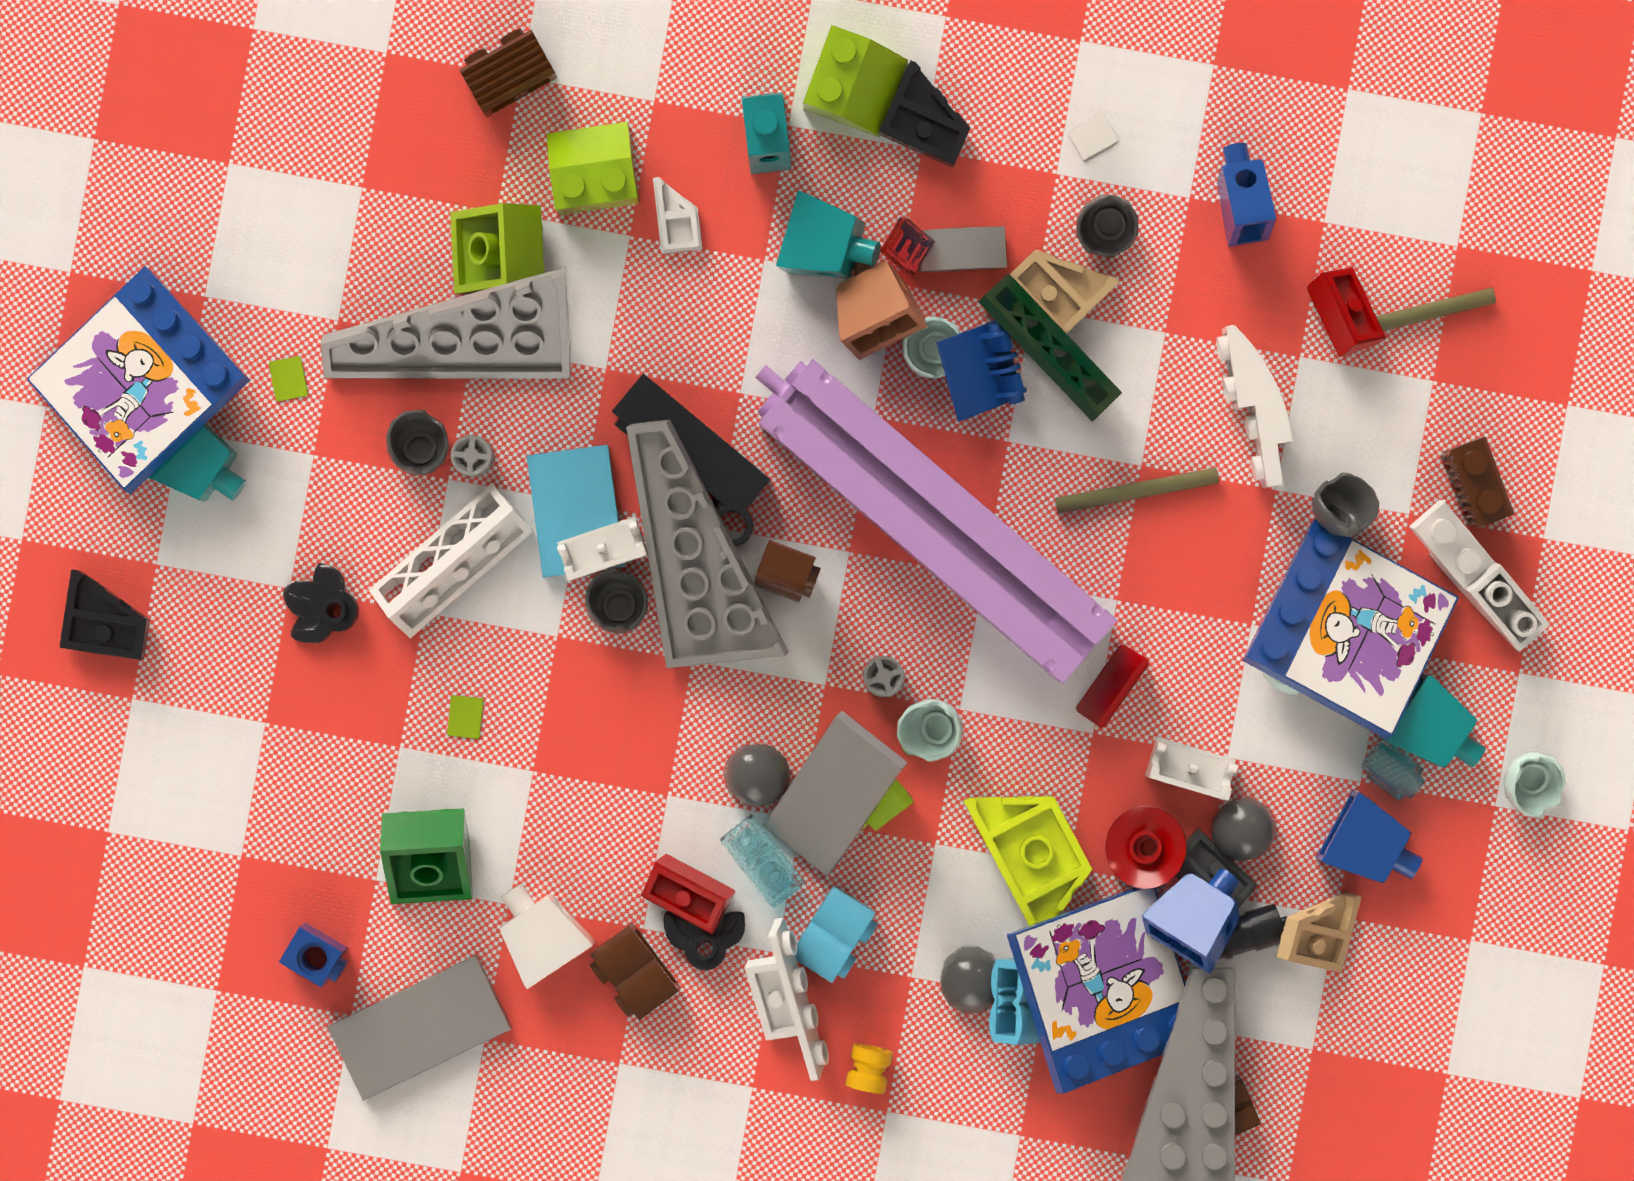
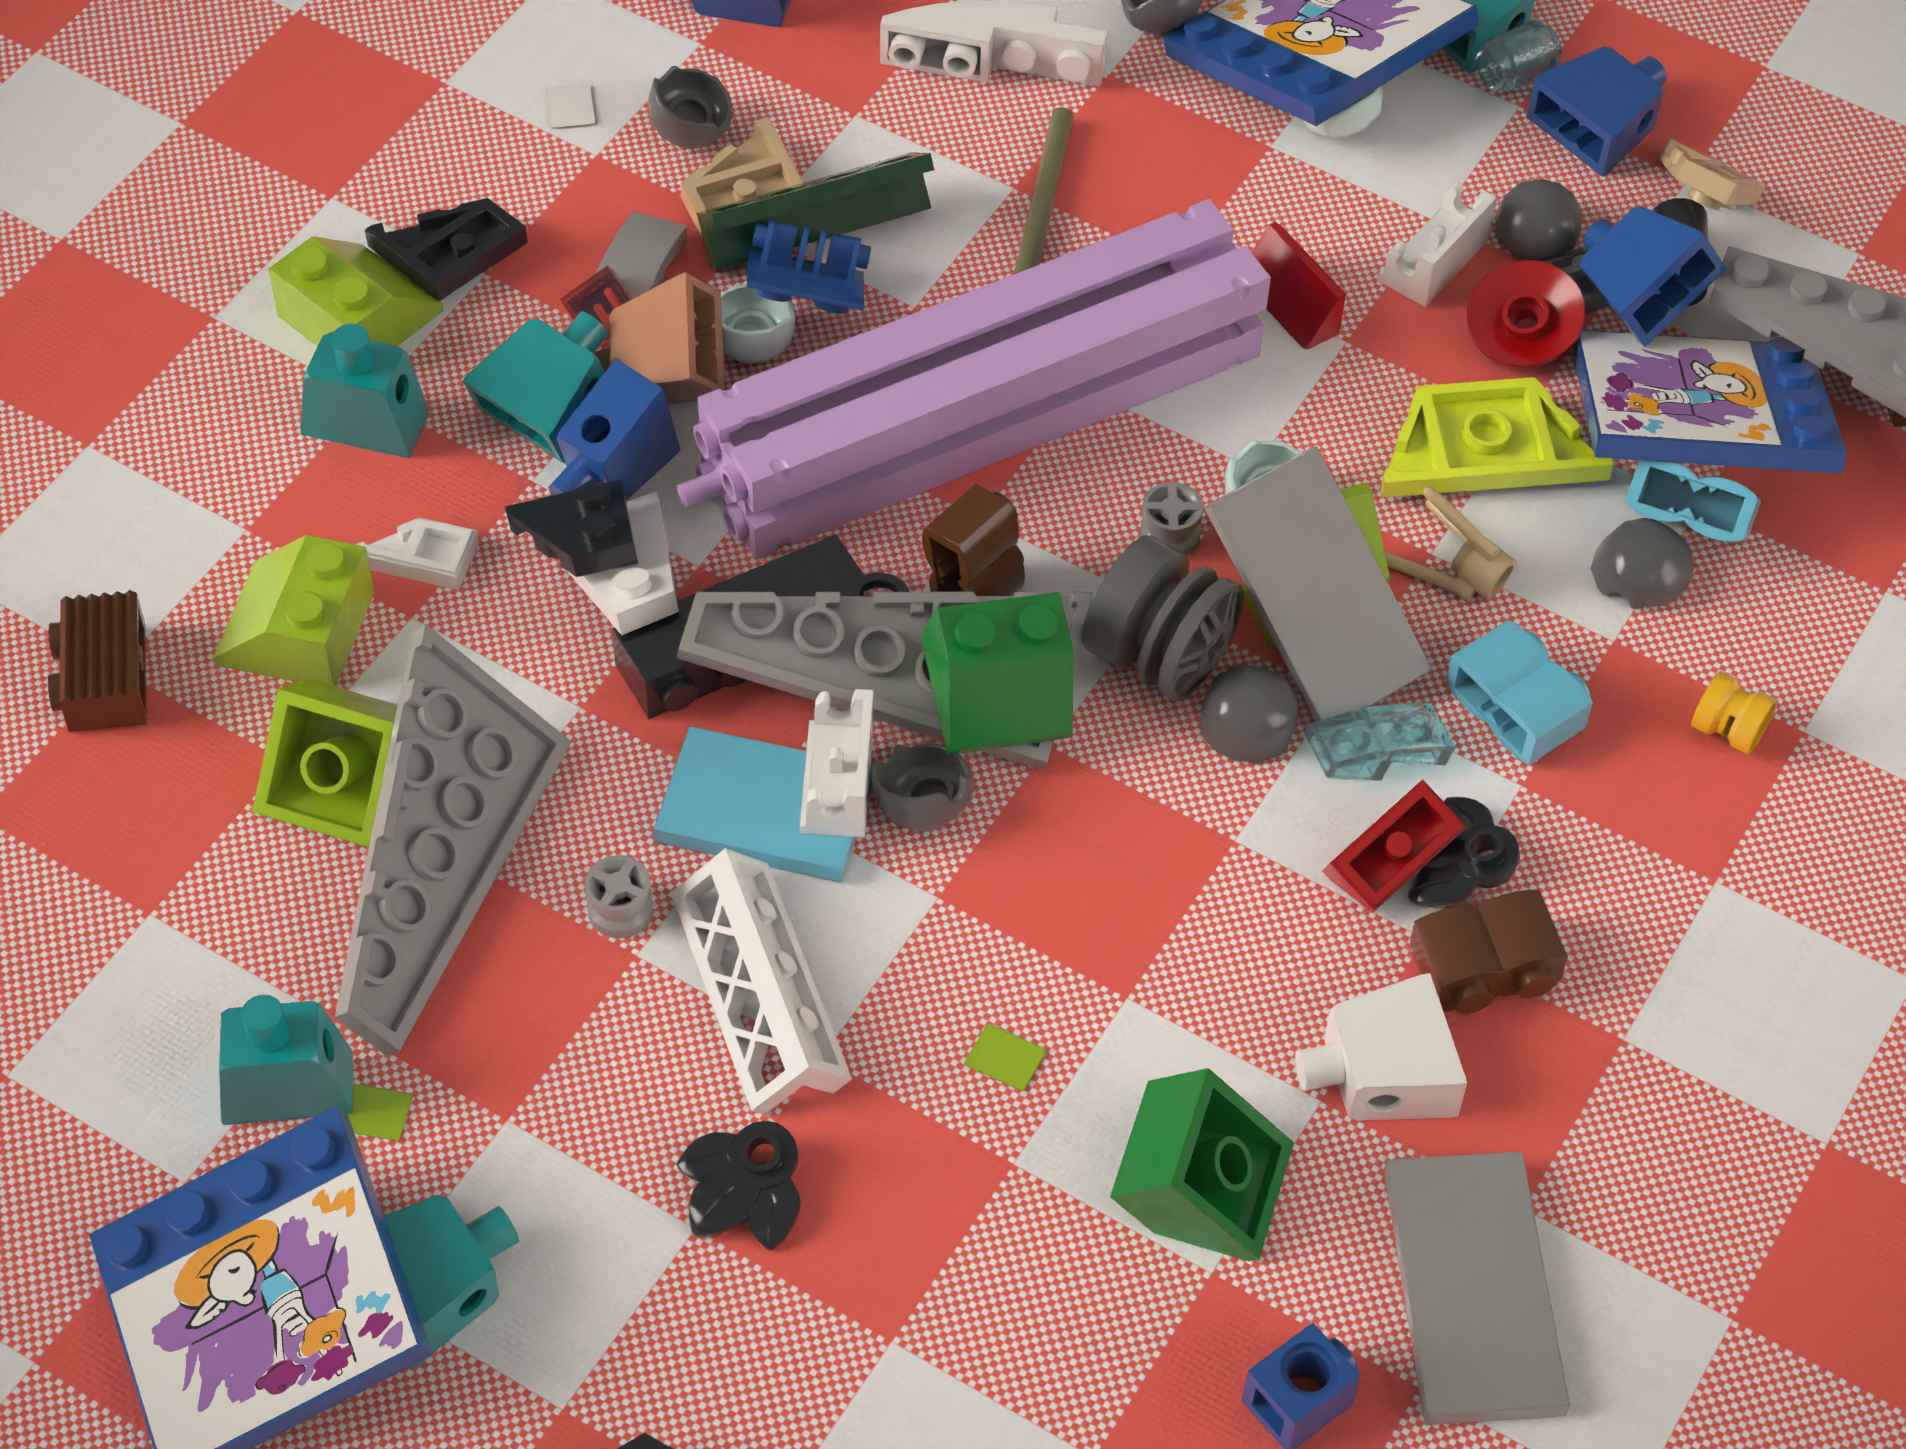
camera: 70 degrees left, 35 degrees down
(279, 324) = (282, 1062): none -> teal torso
(417, 442) = (562, 954): dark grey hair -> none
(695, 623) = (1001, 672): none -> green slope
(706, 351) = (640, 591): none -> white wing
(709, 321) = (580, 528): none -> black wing
(782, 1000) = (1595, 766): white bracket -> none
(785, 704) = (1162, 617): none -> dark grey wheel
(804, 312) = (617, 433): none -> blue torso
(926, 879) = (1479, 561): none -> tan plant

